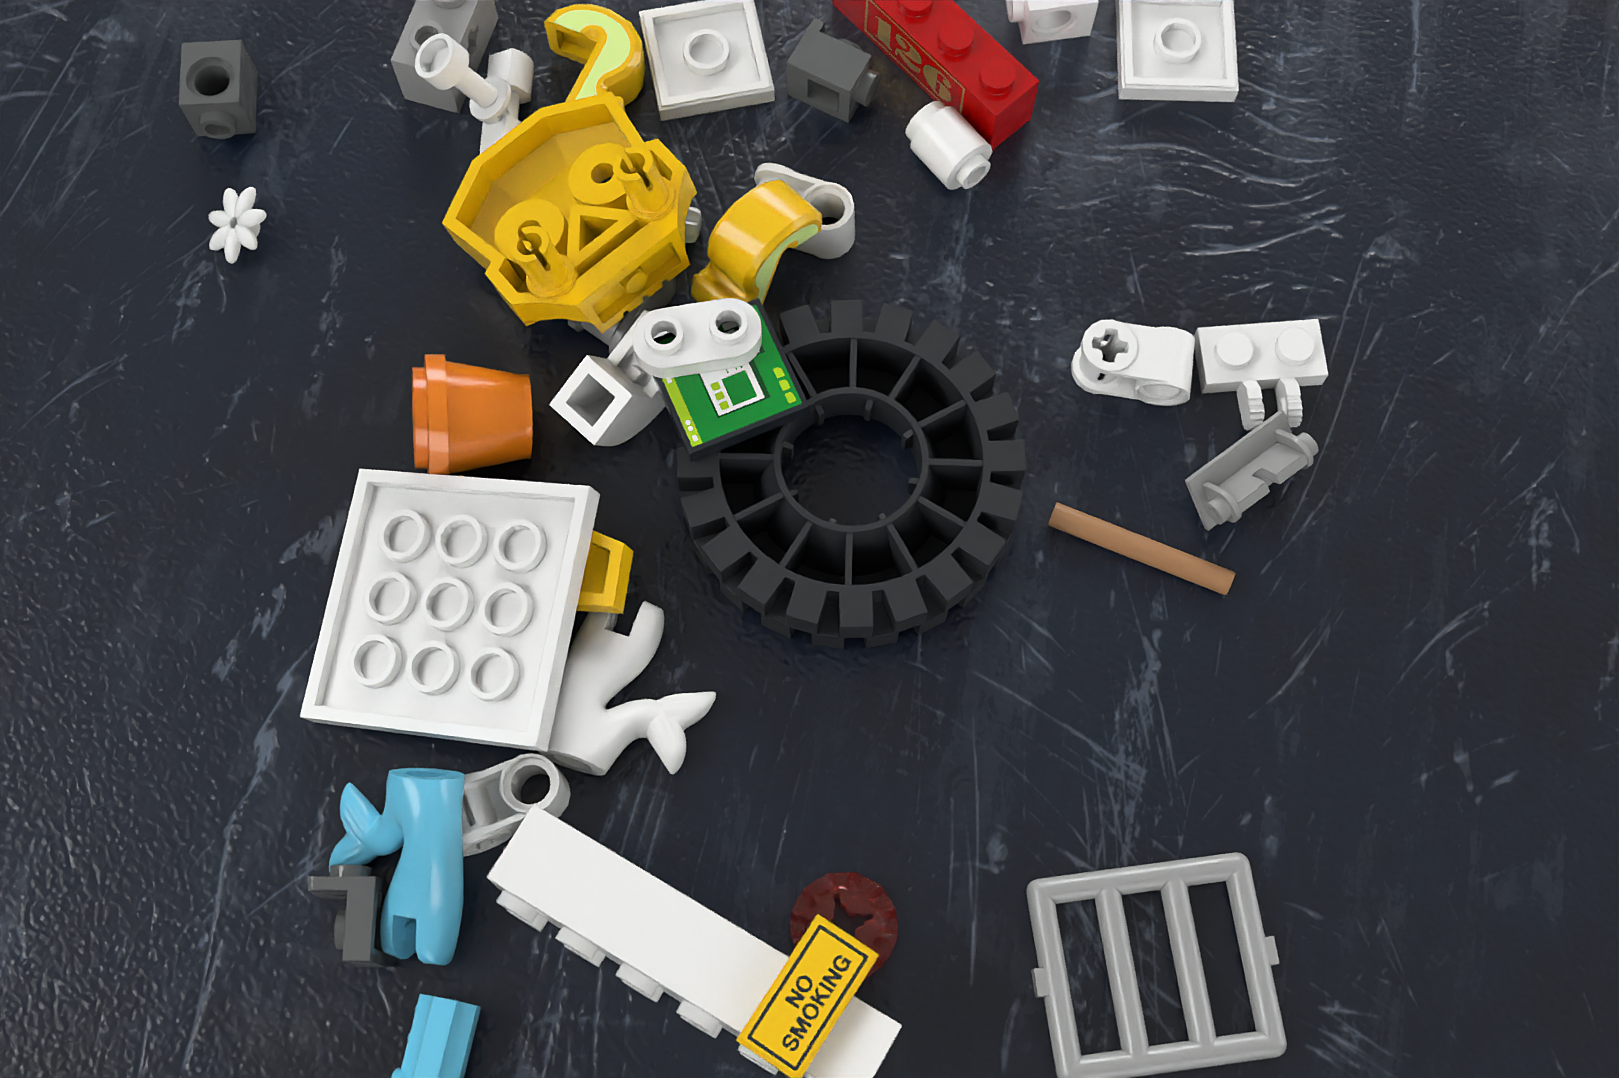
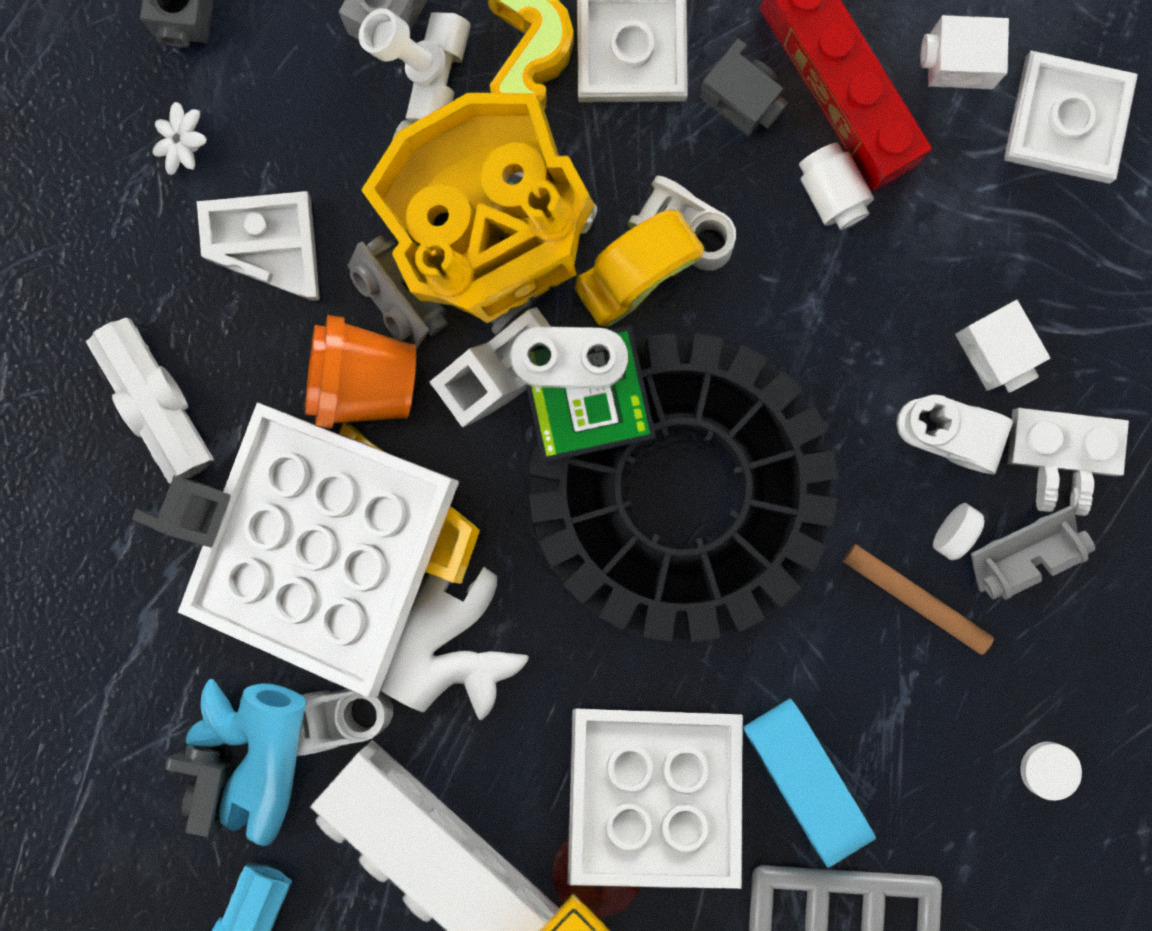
camera: 10 degrees right, 15 degrees up
(238, 494) = (149, 400): none -> white piece
(297, 597) = (188, 512): none -> dark grey panel
(342, 307) = (263, 239): none -> white wing
(478, 320) = (379, 277): none -> light grey hinge
(894, 817) = (655, 799): none -> white plate
(1067, 769) = (809, 783): none -> medium azure beam
(1164, 269) = (1004, 348): none -> white brick
(1167, 464) = (959, 532): none -> white tile
(1337, 705) = (1051, 771): none -> white tile

